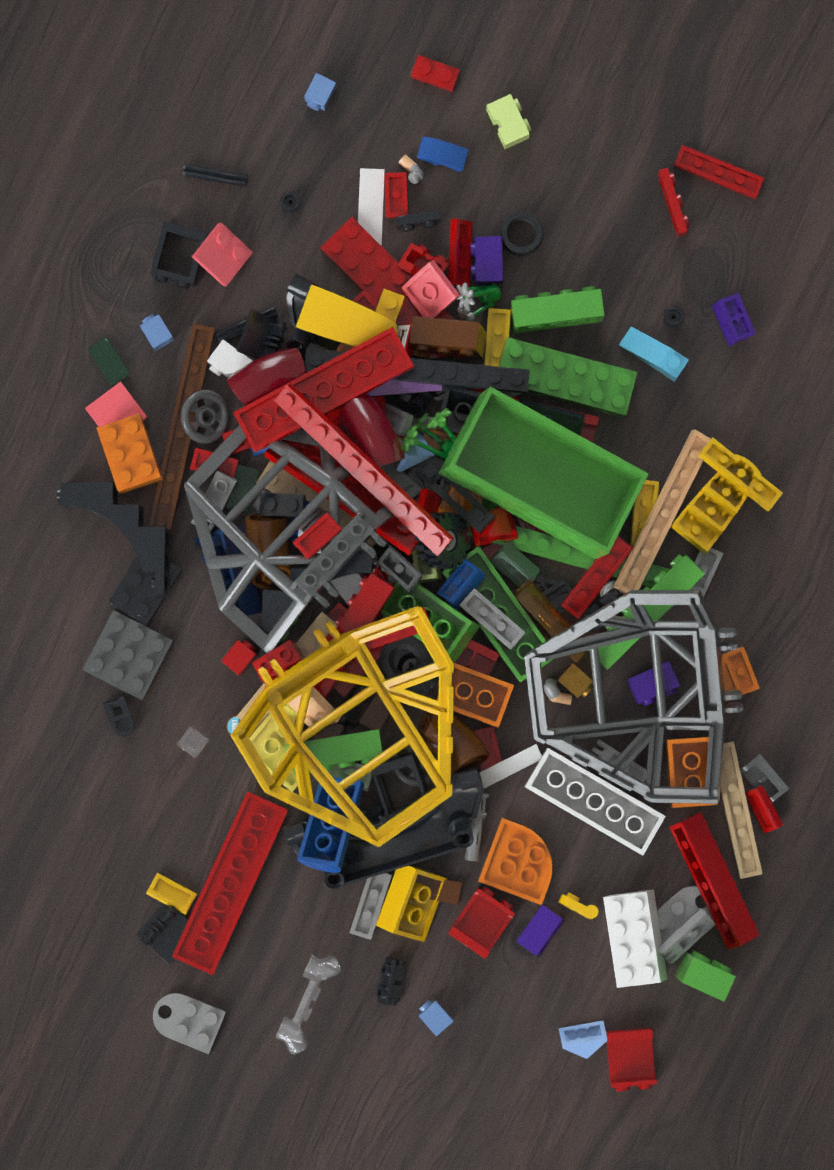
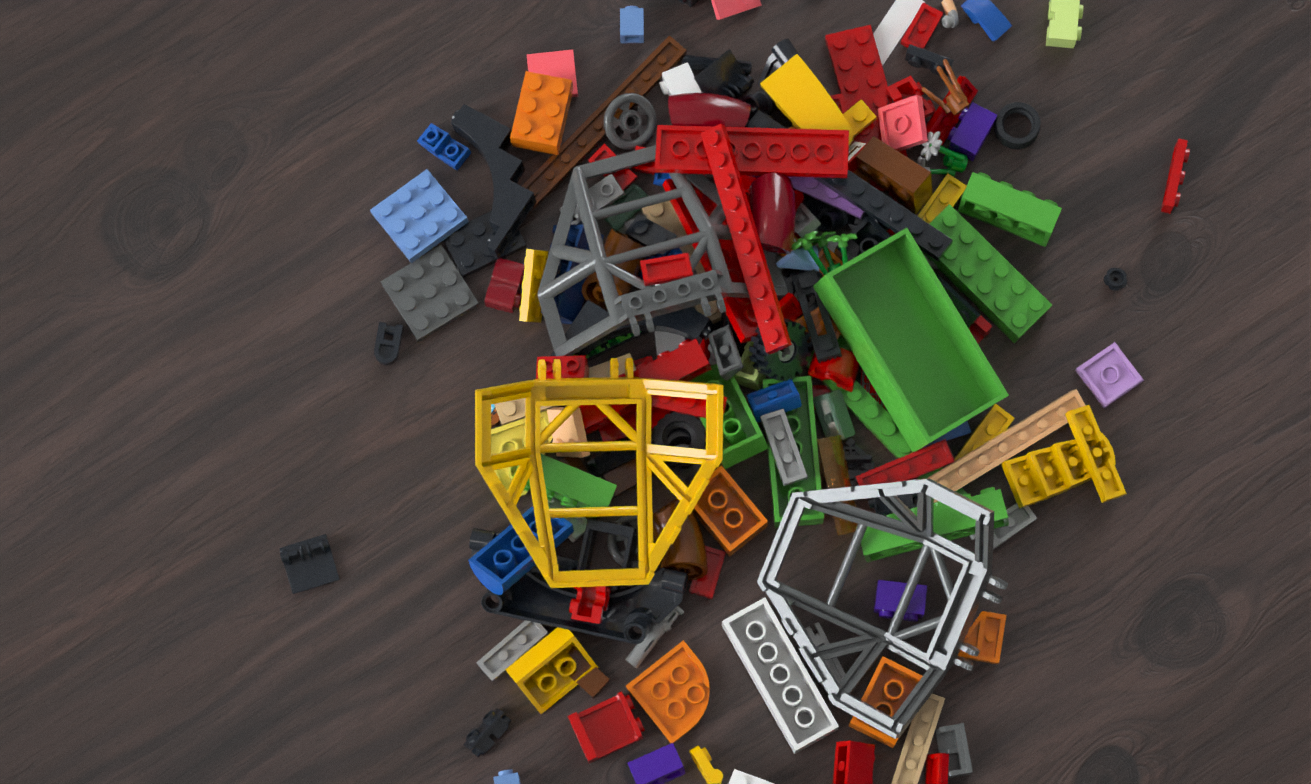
camera: 30 degrees right, 10 degrees down
(64, 526) = (444, 147): none -> blue slope
(80, 596) = (419, 216): none -> medium blue plate
(108, 361) = (573, 27): clear green tile -> none
(171, 893) = (335, 530): yellow tile -> none
(186, 613) = (505, 286): none -> dark red brick
(190, 1021) = (278, 658): light grey plate -> none
(193, 742) = (440, 403): clear panel -> none
(203, 588) = (534, 267): none -> yellow plate
(229, 883) = (394, 551): red plate -> none
(240, 657) = (527, 349): red brick -> none
(316, 971) = (366, 721): clear plate -> none
(413, 838) = (590, 603): none -> red cylinder
(462, 243) = (956, 100): none -> dark orange plant
(478, 658) = (750, 479): red panel -> none
(510, 765) = (718, 597): white sticker -> none
(554, 693) = (800, 556): arm -> none
(576, 681) = (827, 555): pearl gold brick -> none
(654, 353) = (1078, 302): medium azure slope -> none
(713, 400) = (1109, 375): none -> lavender tile
(719, 172) = (1233, 175): red tile -> none
(733, 319) = (1170, 311): dark purple hinge -> none

